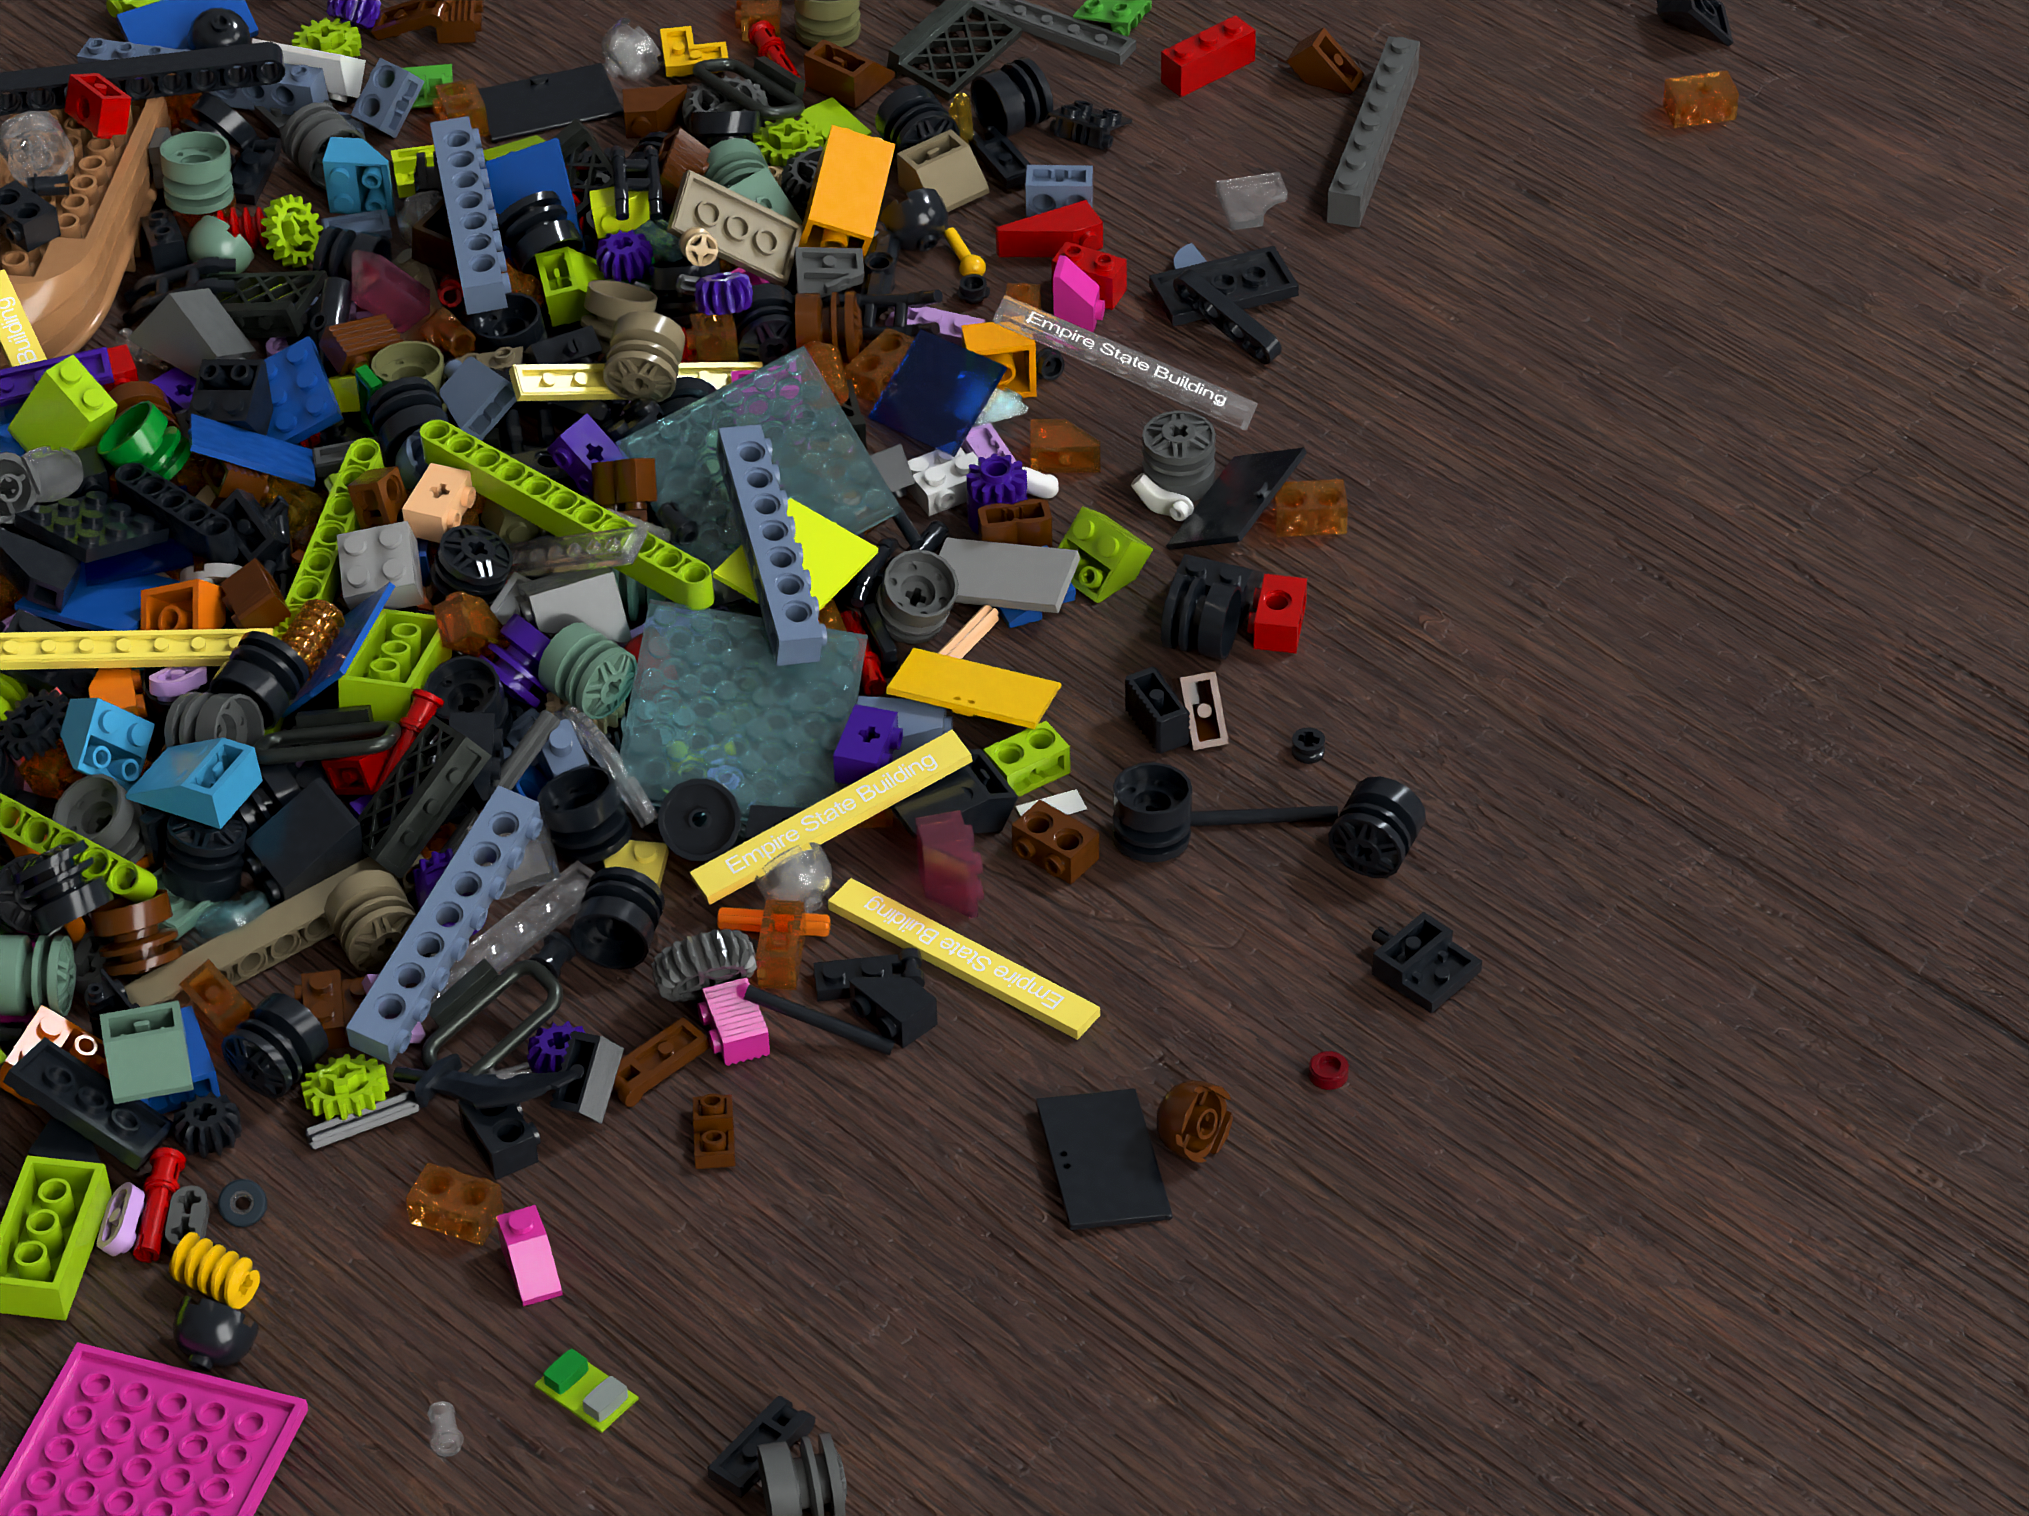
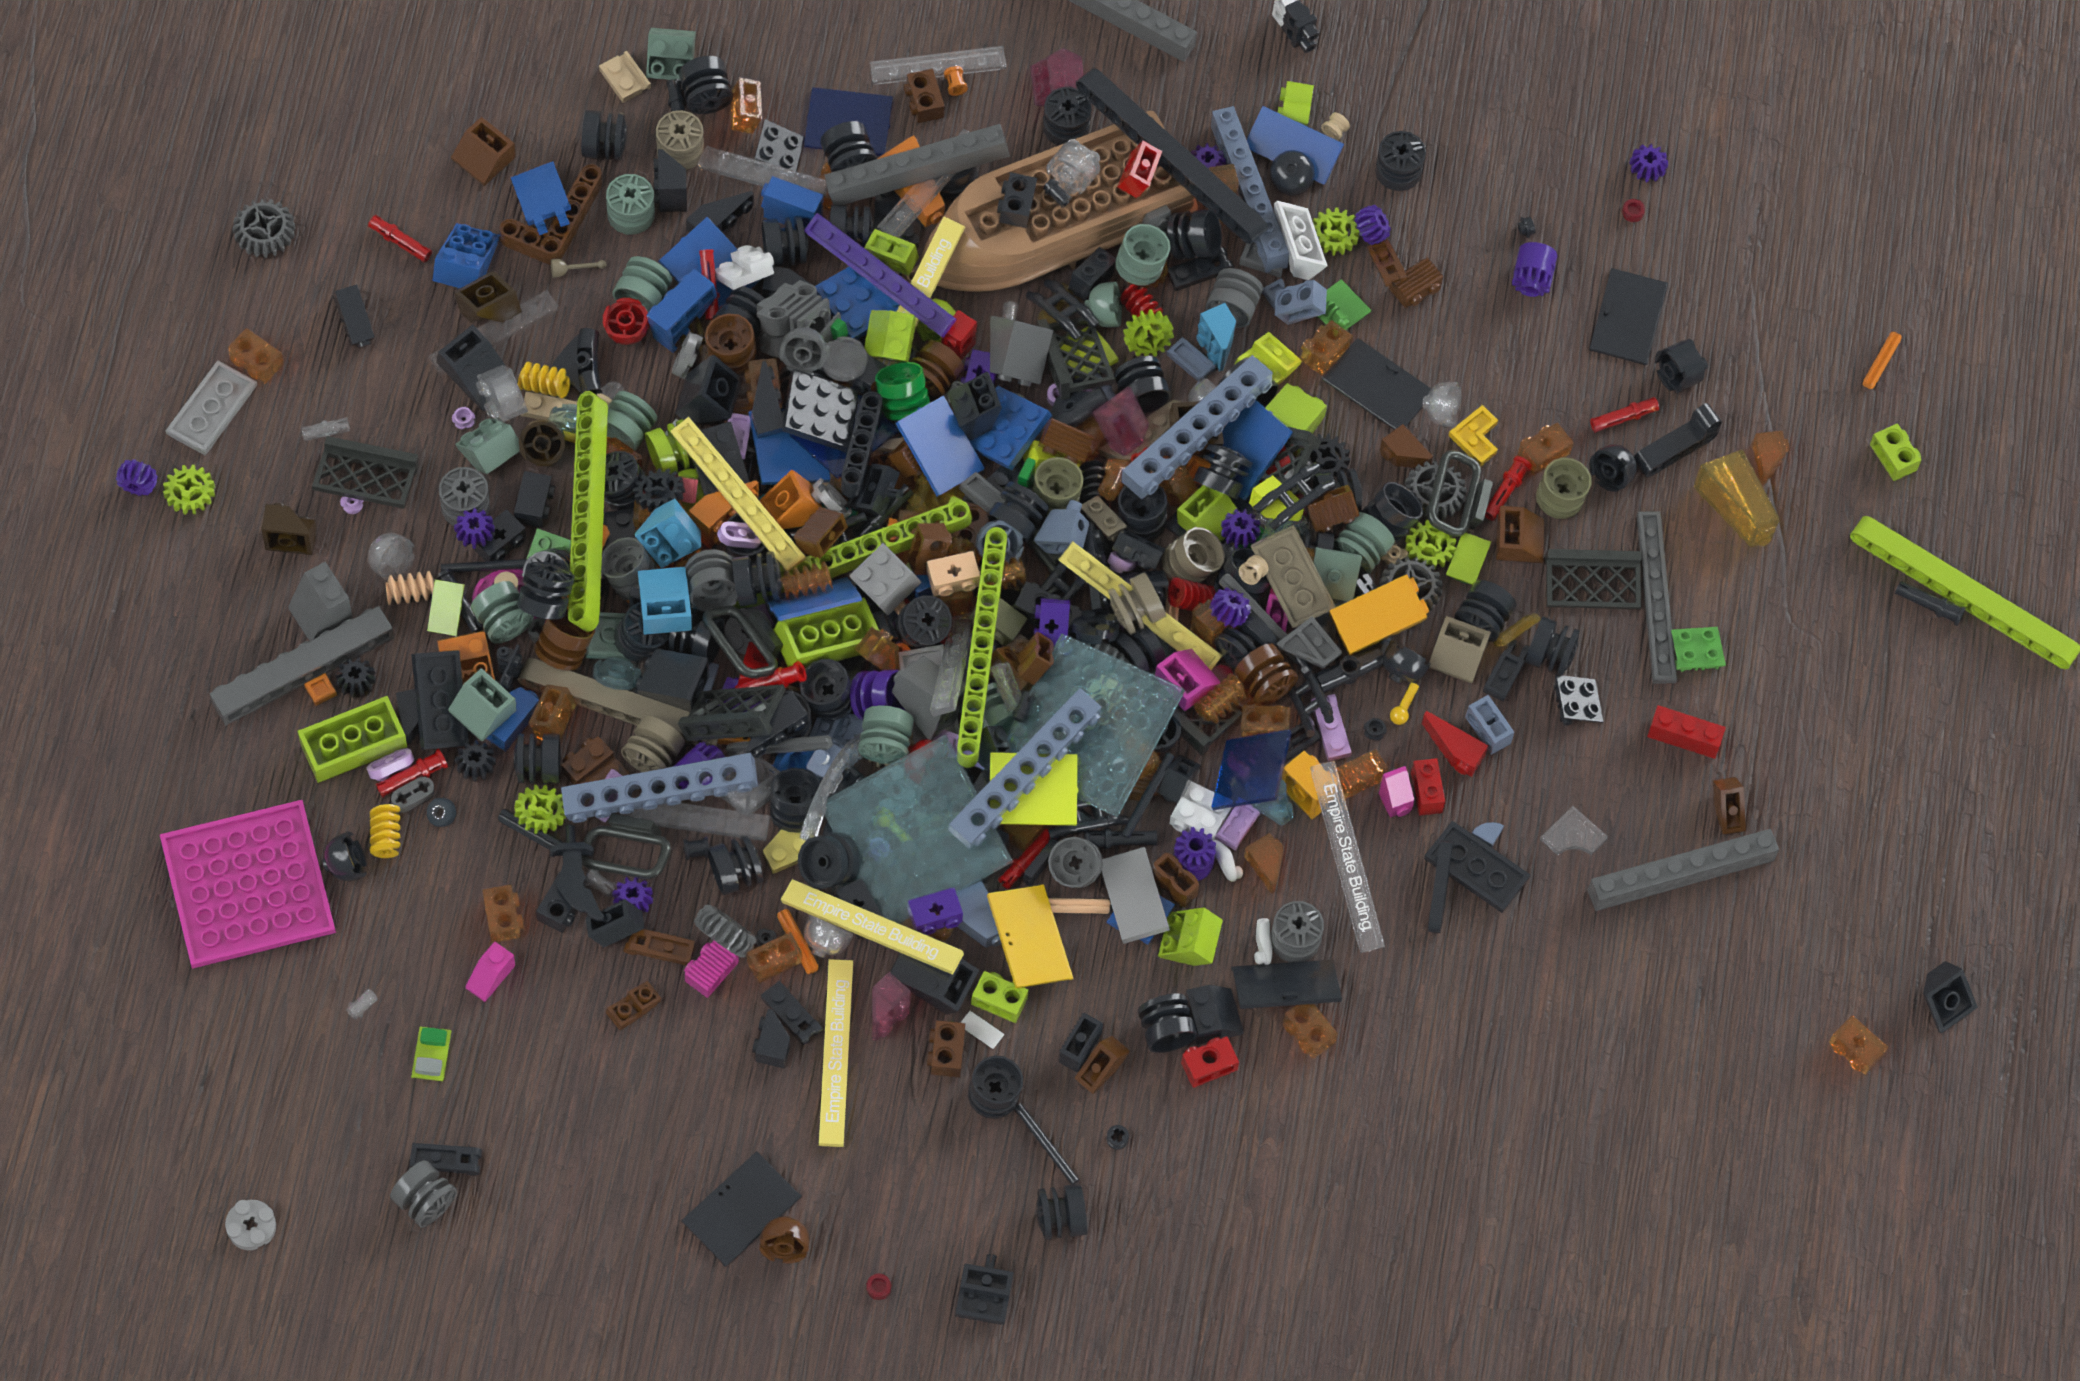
camera: 50 degrees right, 20 degrees up
(819, 1020) = (735, 1010): black bar -> none

